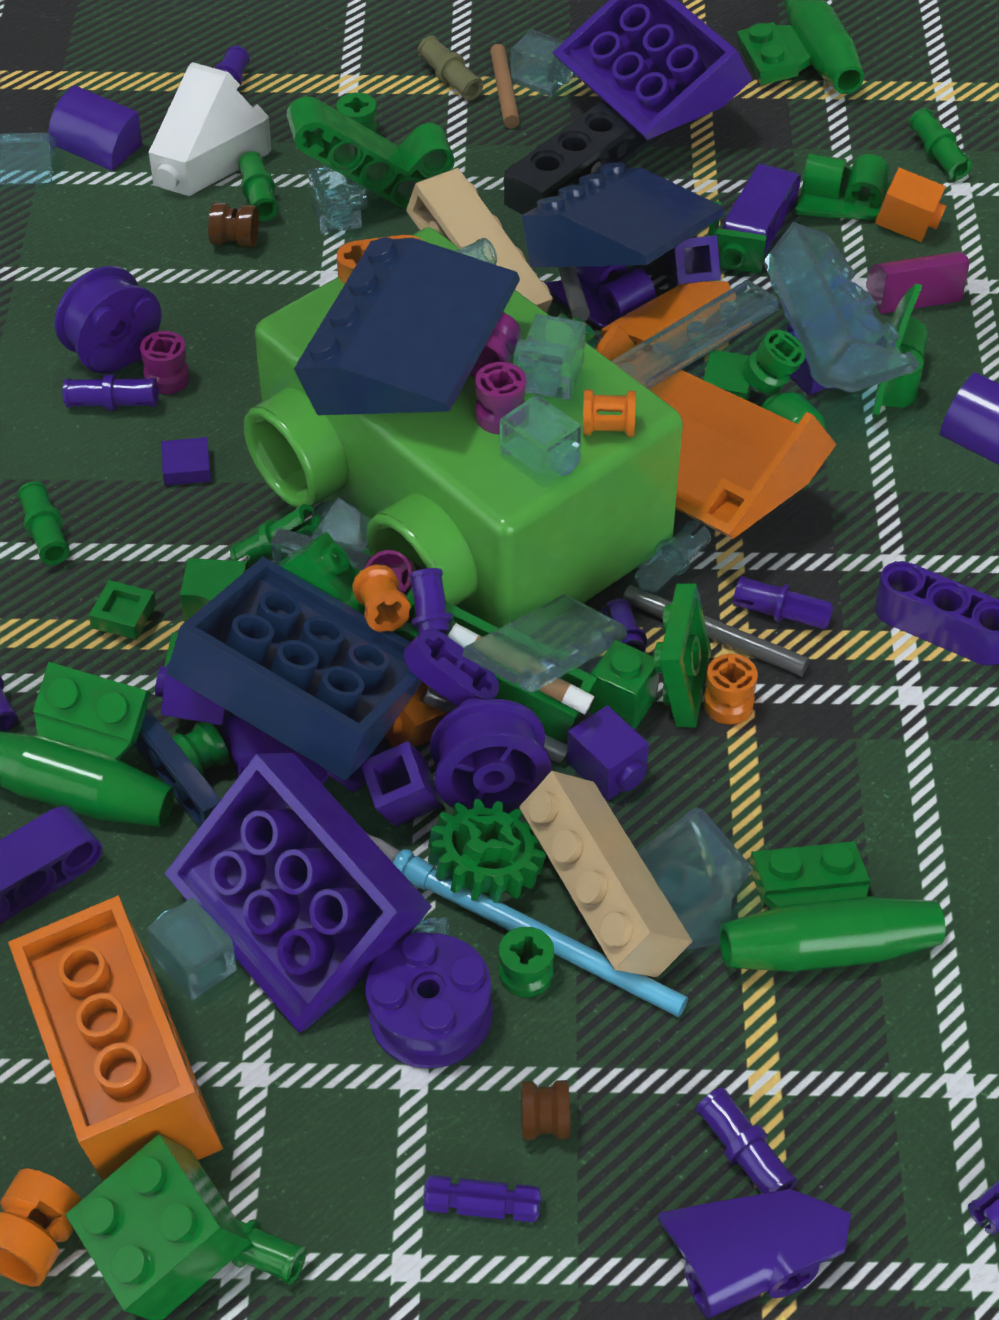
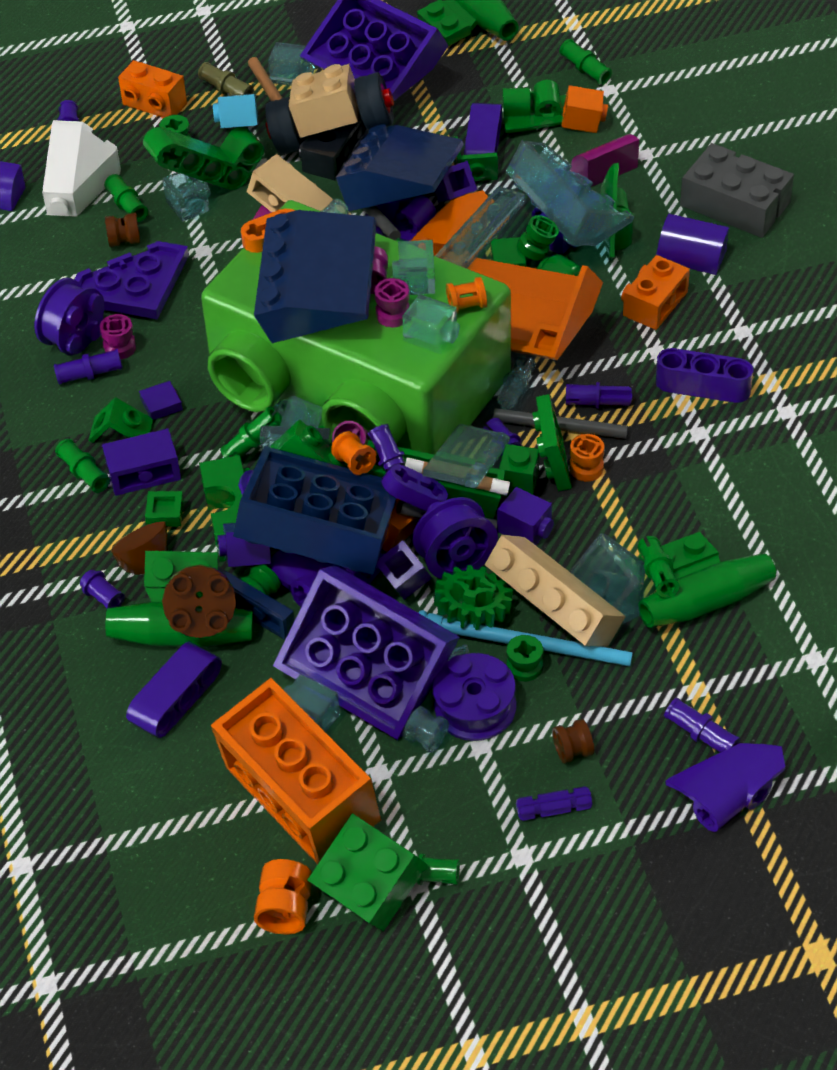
camera: 15 degrees left, 0 degrees up
(67, 746) = (181, 601): none -> reddish brown plate
(76, 648) = (131, 548): none -> reddish brown piece
(119, 537) = (141, 462): none -> dark purple brick
(124, 477) = (121, 418): none -> green bracket
(221, 297) = (138, 282): none -> dark purple plate
(340, 1029) = (426, 729): none -> clear light blue wheel
(350, 56) = (152, 89): none -> orange brick
(438, 103) = (236, 111): none -> medium azure brick
(559, 117) = (325, 103): none -> brick
(764, 880) = (658, 566): none -> green pin
(919, 477) = (655, 292): none -> orange brick

